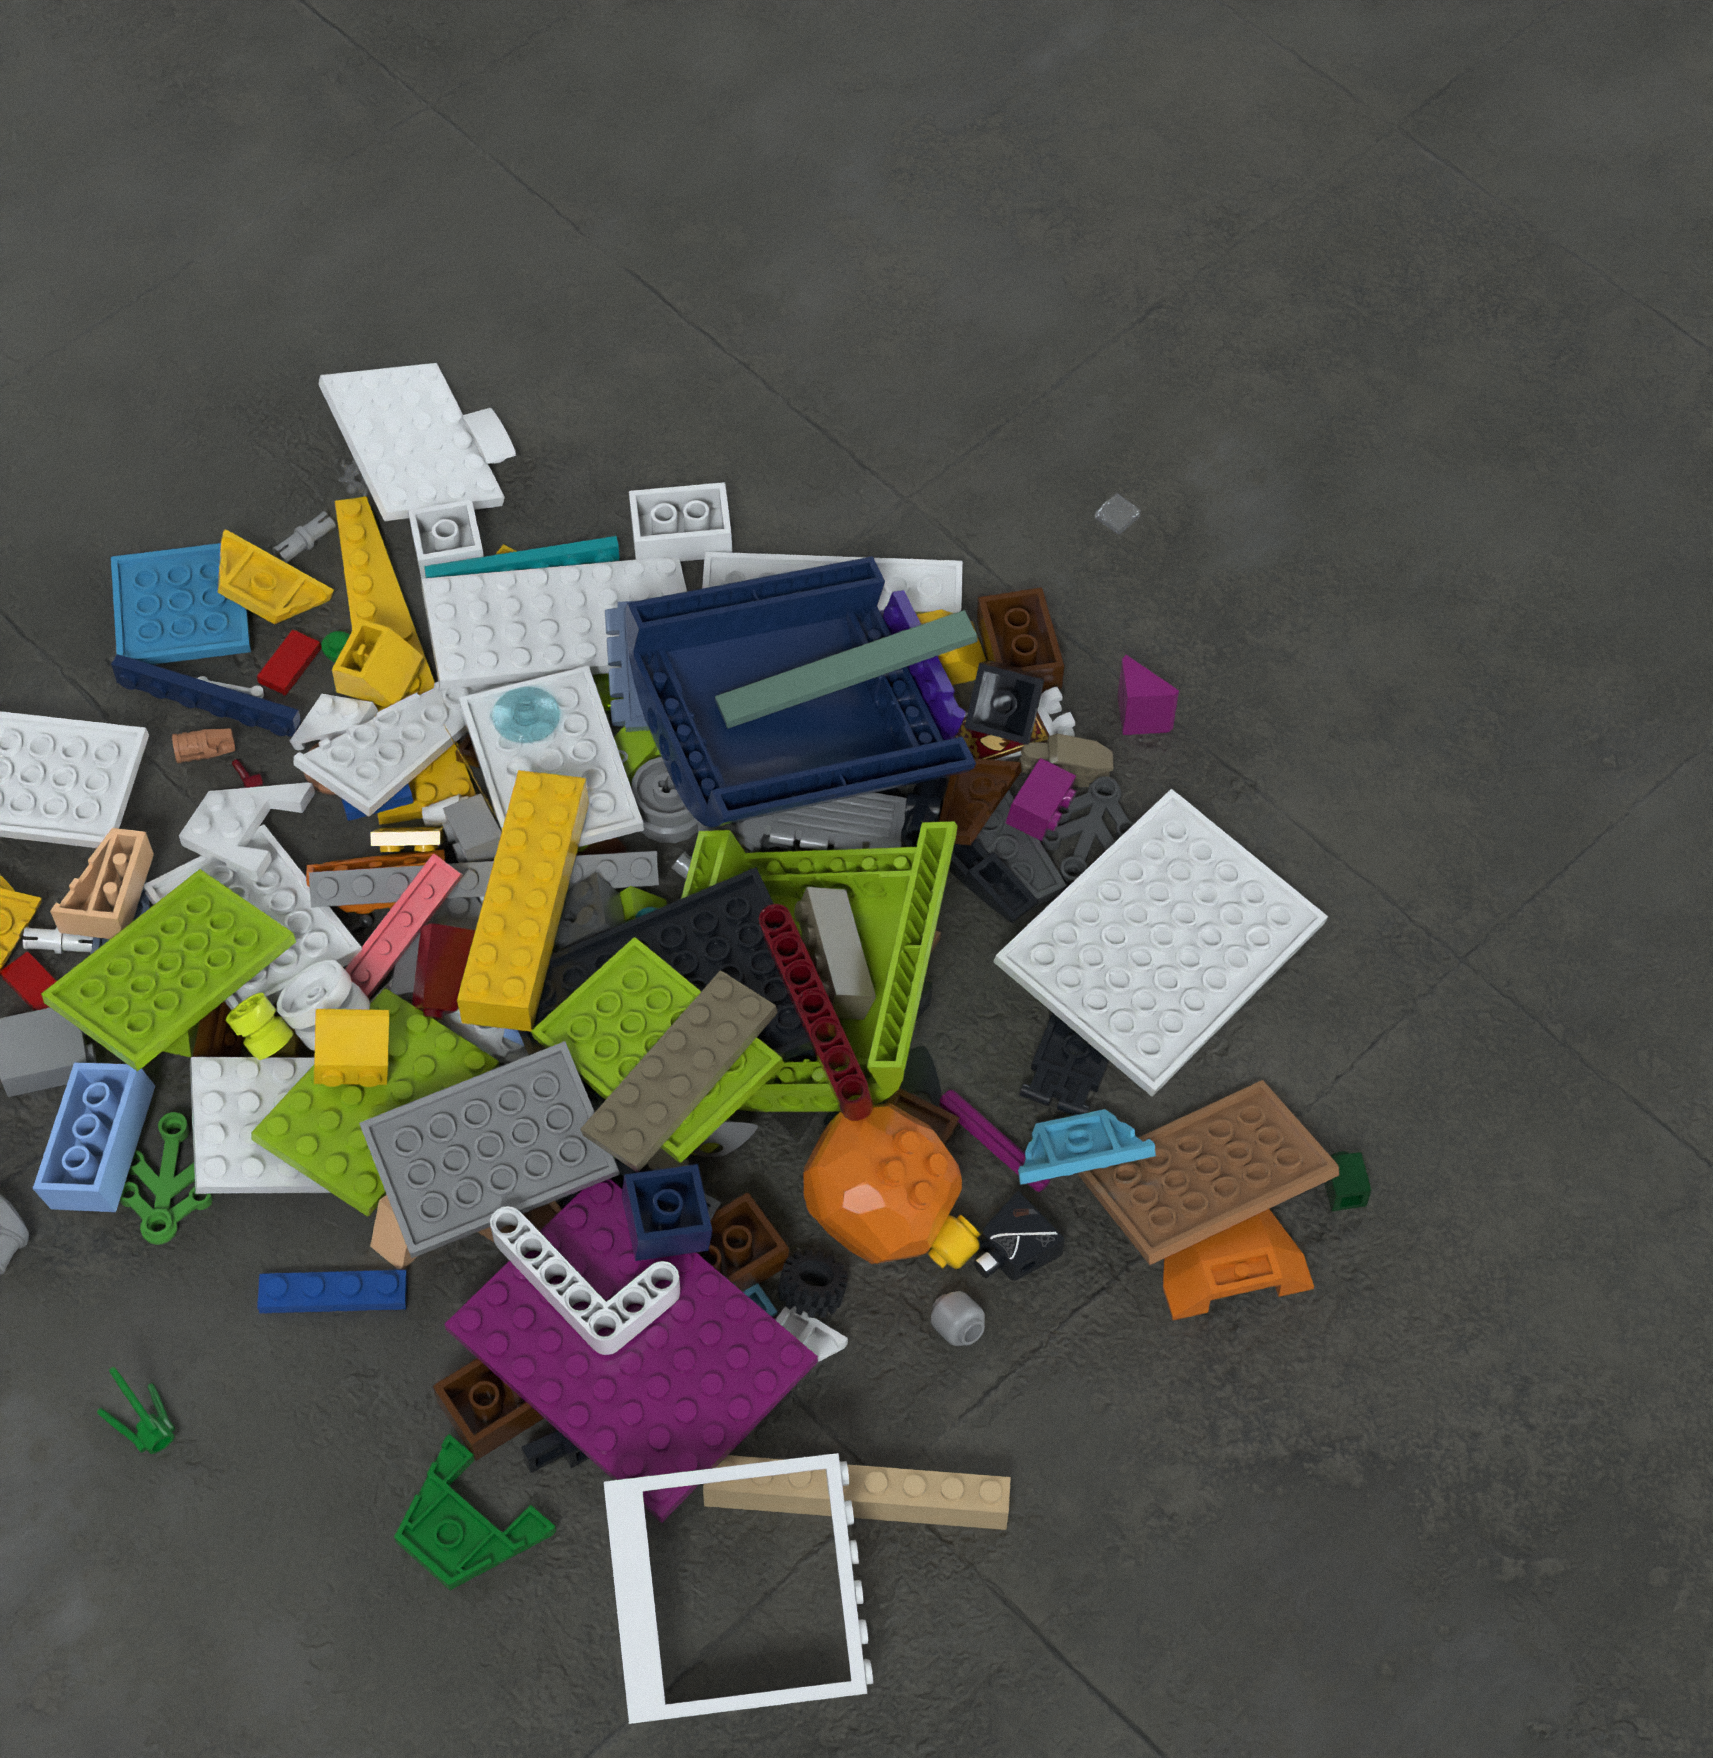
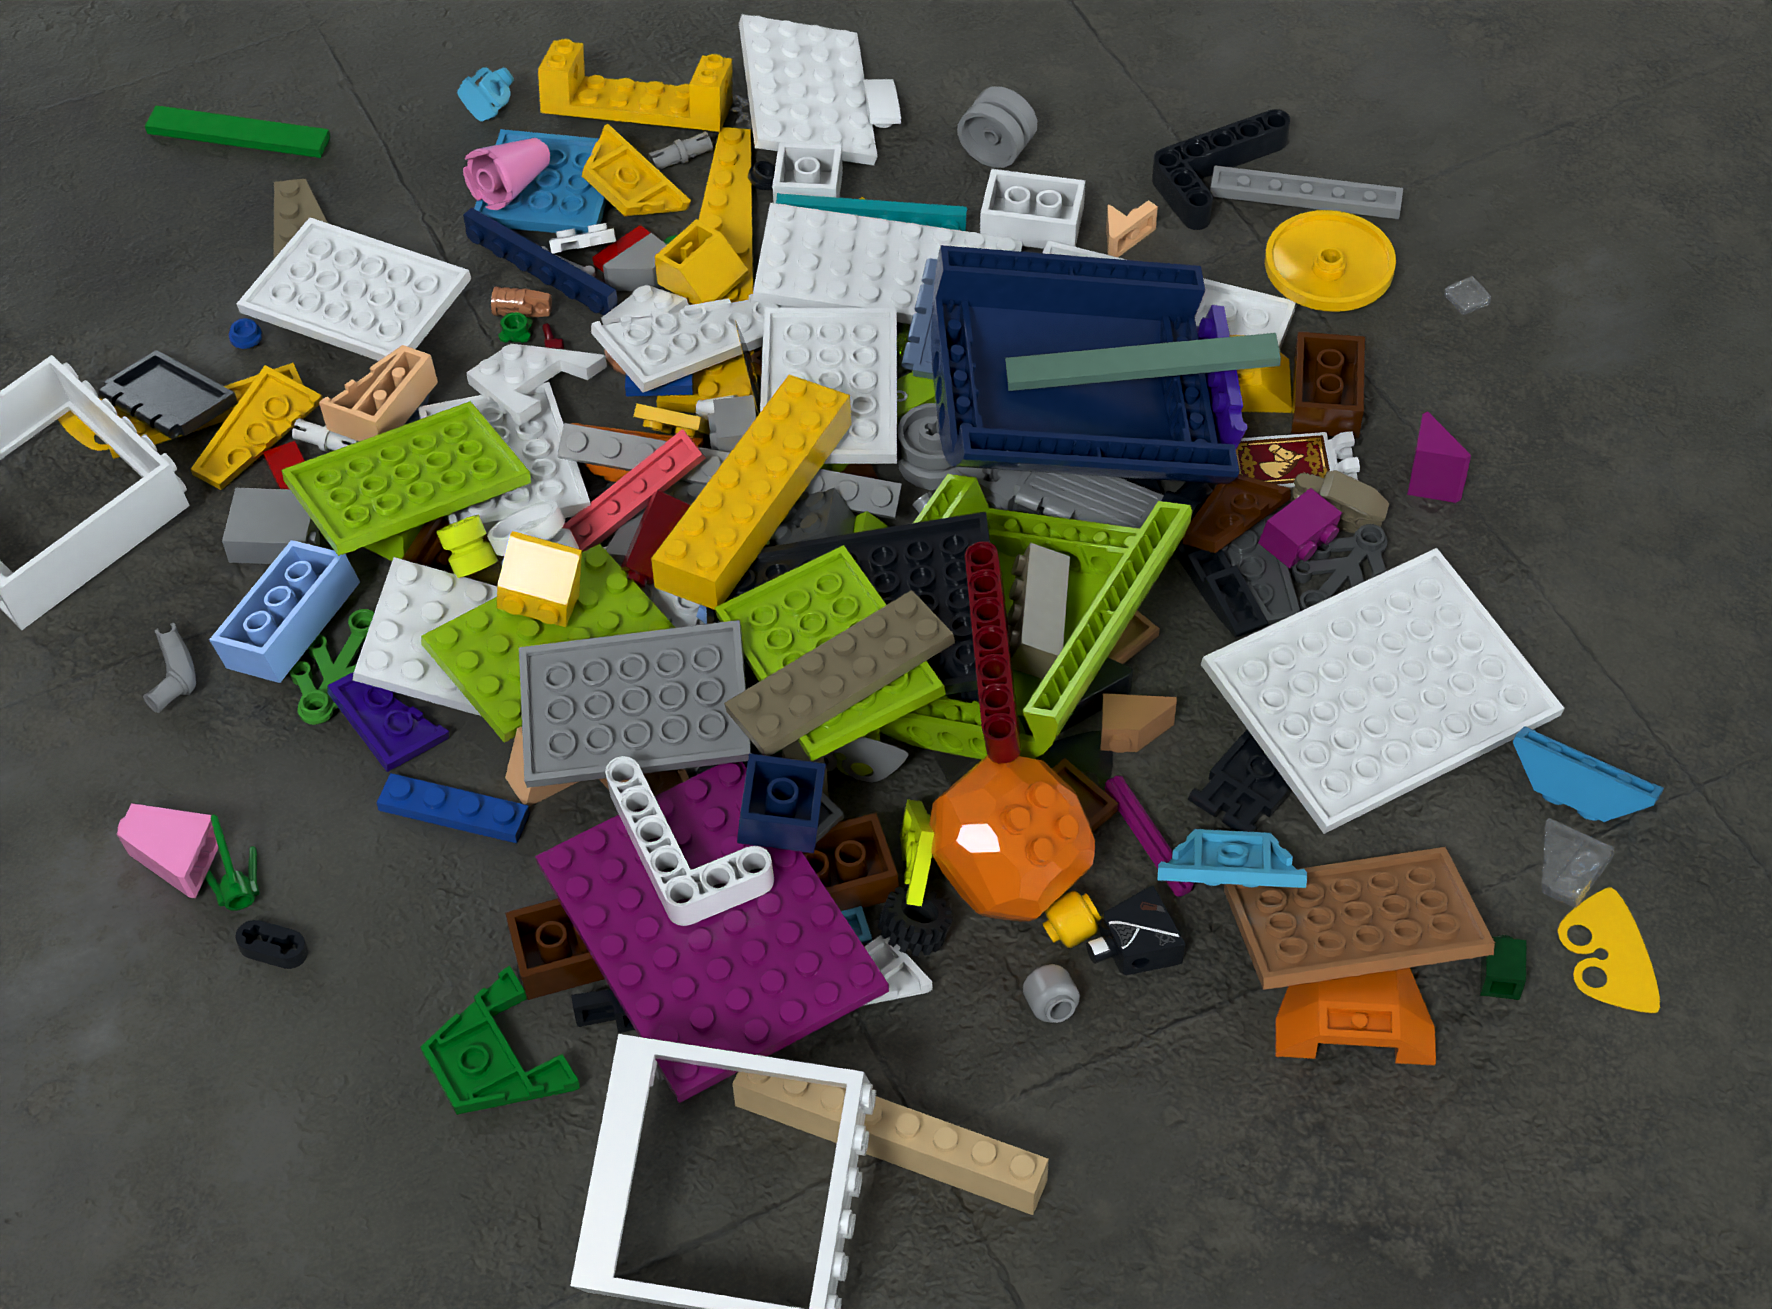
camera: 20 degrees right, 5 degrees down
(71, 1406) = (170, 844): none -> bright pink slope
(82, 520) = (491, 89): none -> medium azure piece
(138, 607) = (504, 170): none -> bright pink cone
(203, 766) = (515, 328): none -> green plate
(210, 1473) = (273, 939): none -> black beam
(227, 664) = (568, 238): none -> white wing
(234, 1224) = (384, 723): none -> dark purple wing
(237, 491) = (695, 105): none -> yellow plate
(308, 675) = (634, 266): none -> light grey slope
(398, 545) = (762, 175): none -> black plate
(526, 724) = (820, 336): clear light blue dish -> none
(617, 441) = (997, 127): none -> light grey wheel
(775, 523) = (1127, 231): none -> light nougat slope
(795, 1212) = (916, 849): none -> neon yellow wing
(807, 438) = (1183, 165): none -> black beam
(934, 439) = (1306, 192): none -> light grey plate
(946, 1032) = (1134, 720): none -> medium nougat slope
(981, 510) = (1330, 260): none -> yellow dish
(1004, 702) = (1289, 427): black slope -> none
(1365, 983) = (1580, 780): none -> dark azure wedge
(1375, 1064) = (1571, 862): none -> clear wing
(1450, 1148) = (1628, 966): none -> yellow piece

